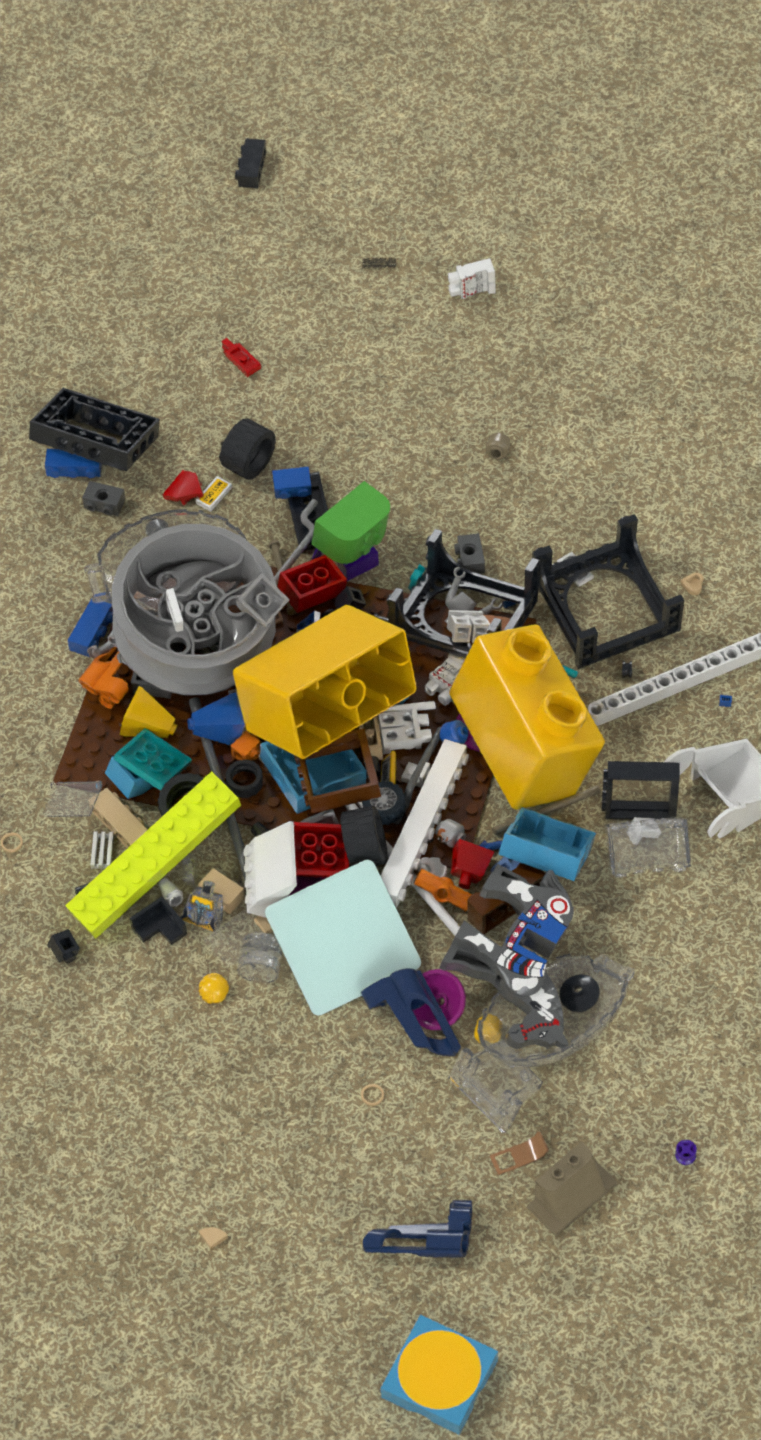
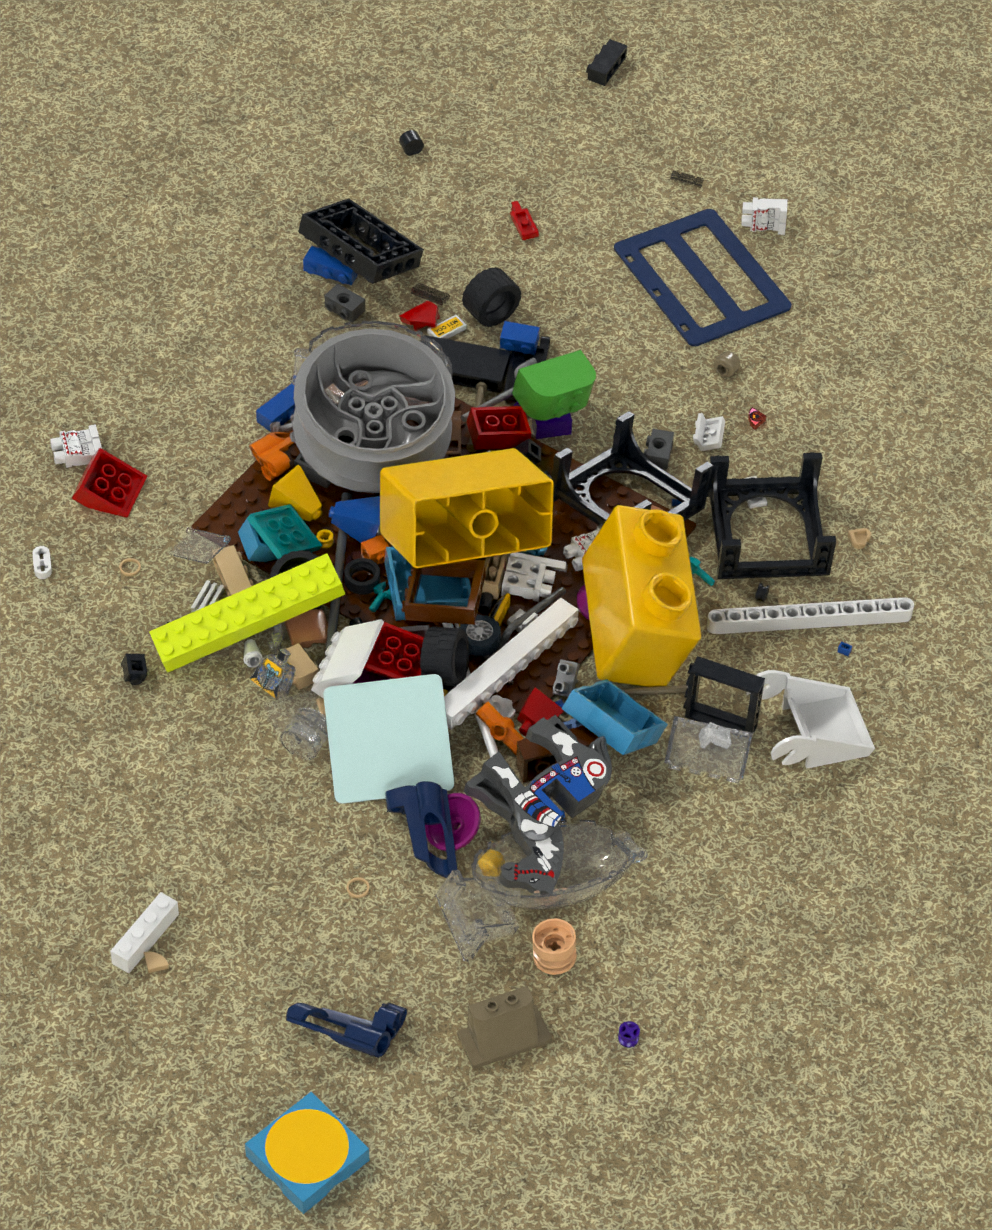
camera: 15 degrees right, 5 degrees down
(96, 308) = (411, 142): none -> black piece
(158, 918) = (228, 671): black panel -> none
(174, 610) = (348, 399): white tile -> none
(182, 462) = (430, 294): none -> clear smoke tile
(189, 746) = (325, 534): none -> yellow bush
(191, 1211) = (144, 932): none -> white brick
(213, 988) = (253, 748): yellow hair -> none
(214, 850) = (308, 628): none -> nougat slope
(259, 520) = (476, 364): none -> black brick
(261, 600) = (432, 415): light grey slope -> none
(269, 793) = (381, 596): none -> teal bar
(416, 576) = (599, 449): teal bar -> none
(450, 832) = (529, 679): light grey head -> none
(454, 731) = (573, 594): blue head -> none
(462, 601) = (630, 489): light grey piece -> none
(466, 625) = (621, 497): white hips -> none
(481, 818) = (566, 678): none -> light grey hips
(485, 394) = (670, 305): none -> dark blue door
(510, 522) = (709, 432): none -> white bracket
(523, 1153) = (474, 985): medium nougat piece -> none
(547, 492) = (756, 418): none -> clear red tile
(580, 1081) = (554, 946): none -> light nougat wheel
(581, 1000) = (588, 865): black dish -> none

